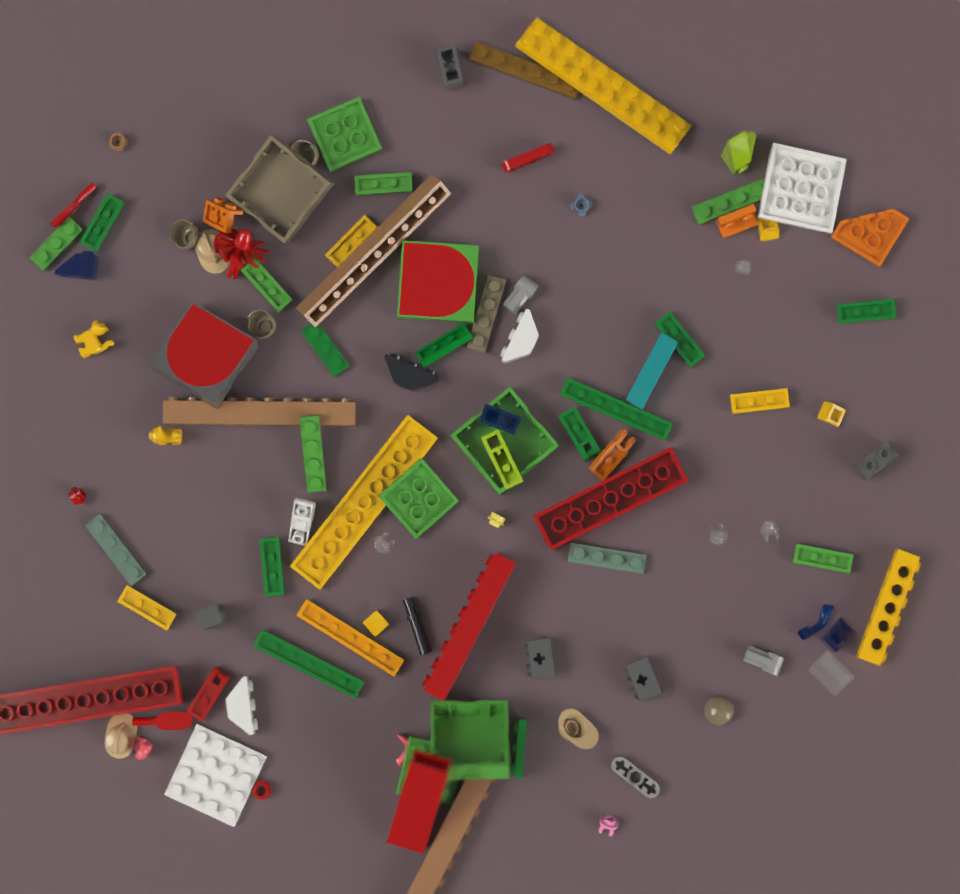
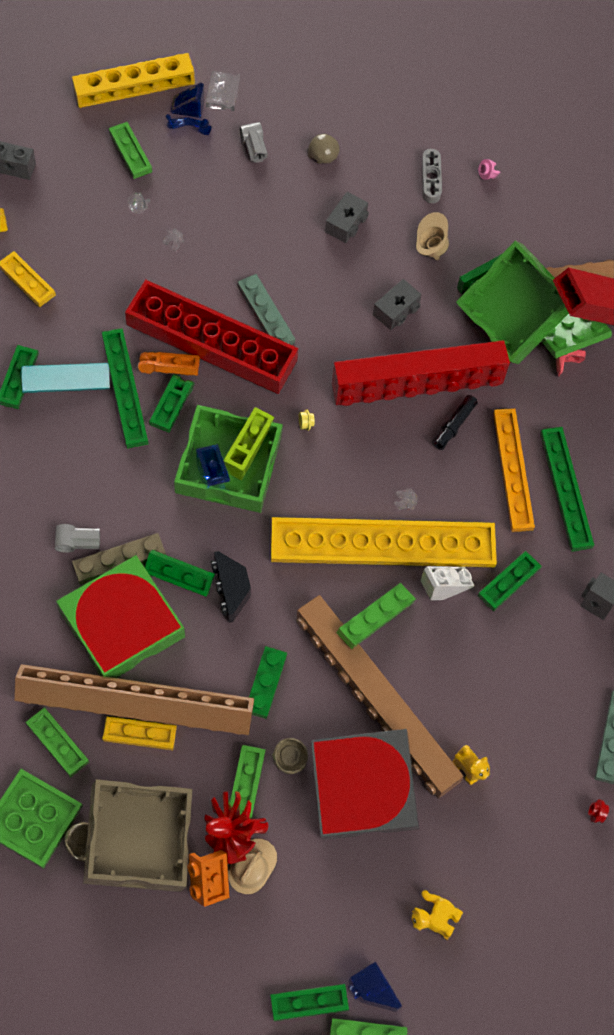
camera: 135 degrees left, 20 degrees down
(184, 234) = (258, 902): dark tan hair -> none
(376, 623) = (481, 458): yellow slope -> none
(418, 498) = (341, 495): bright green plate -> none
(522, 339) = (119, 508): white slope -> none

